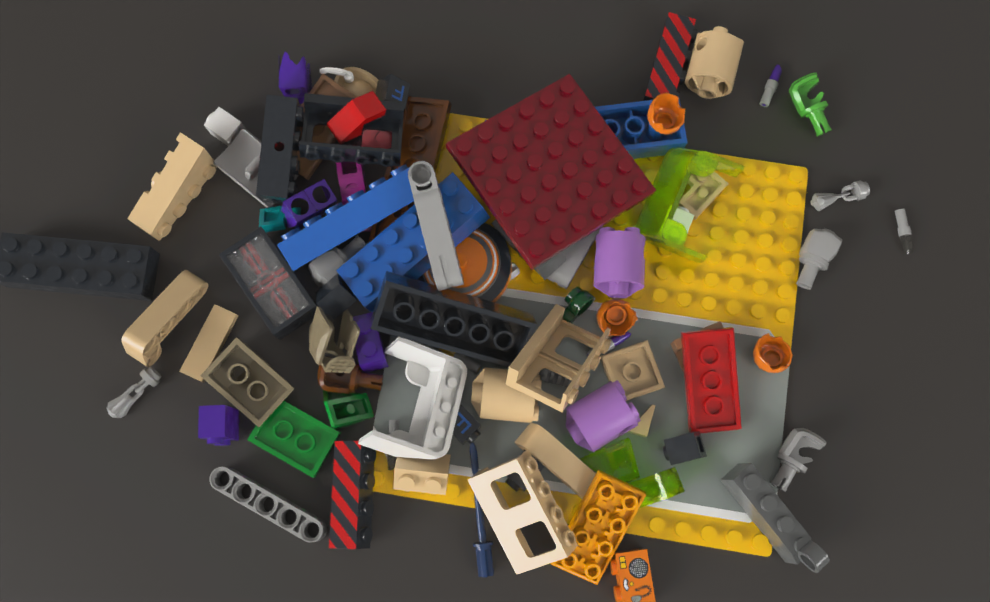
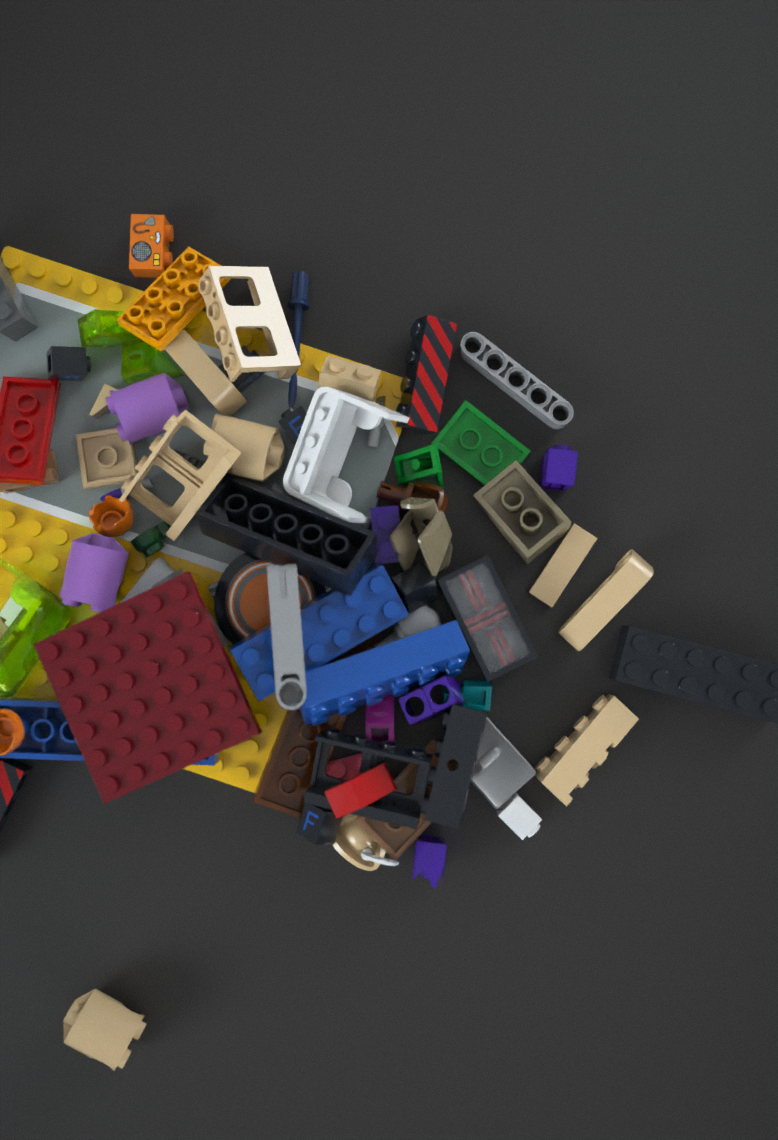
camera: 170 degrees left, 10 degrees up
(120, 406) = (664, 511): light grey piece -> none

